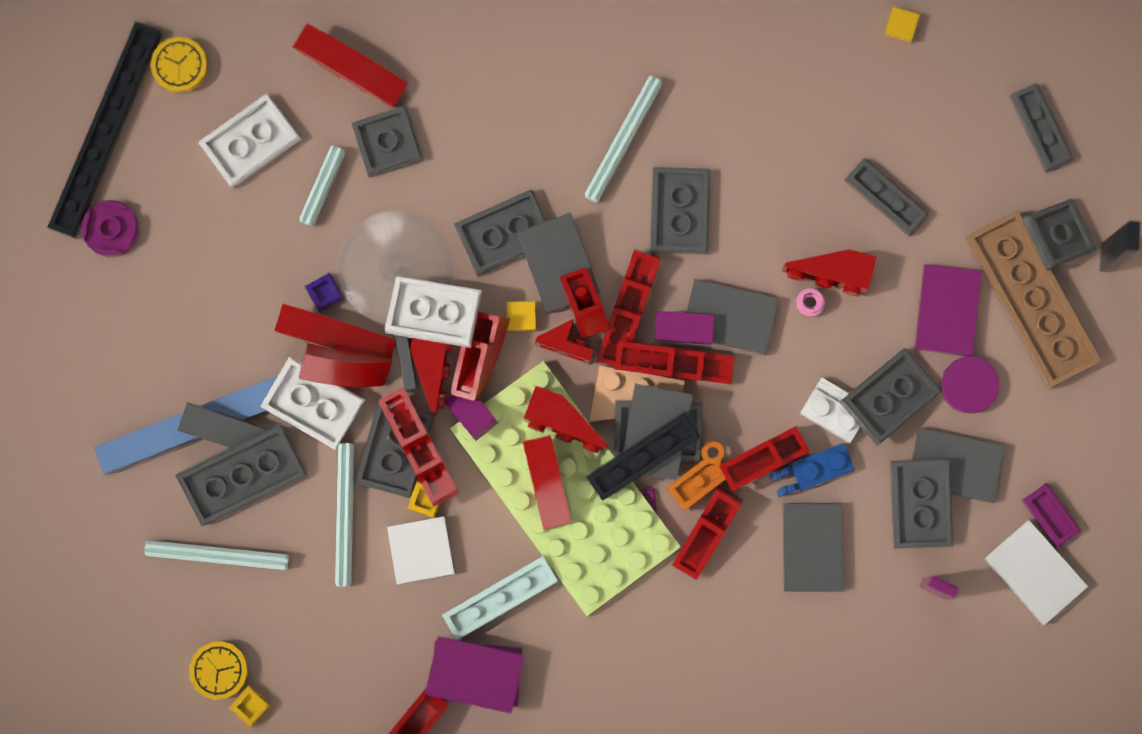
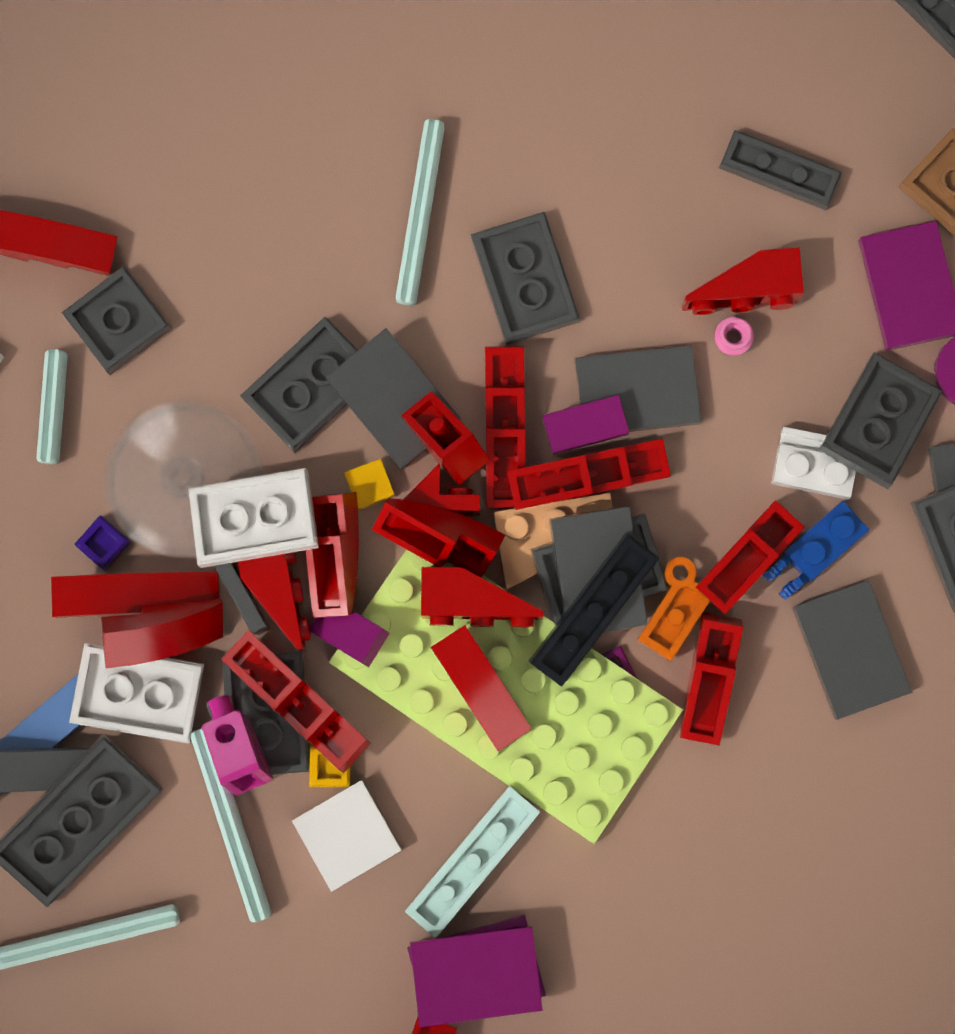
camera: 20 degrees left, 0 degrees up
(366, 473) = (238, 762): none -> dark pink torso
(556, 368) = (439, 534): none -> red slope

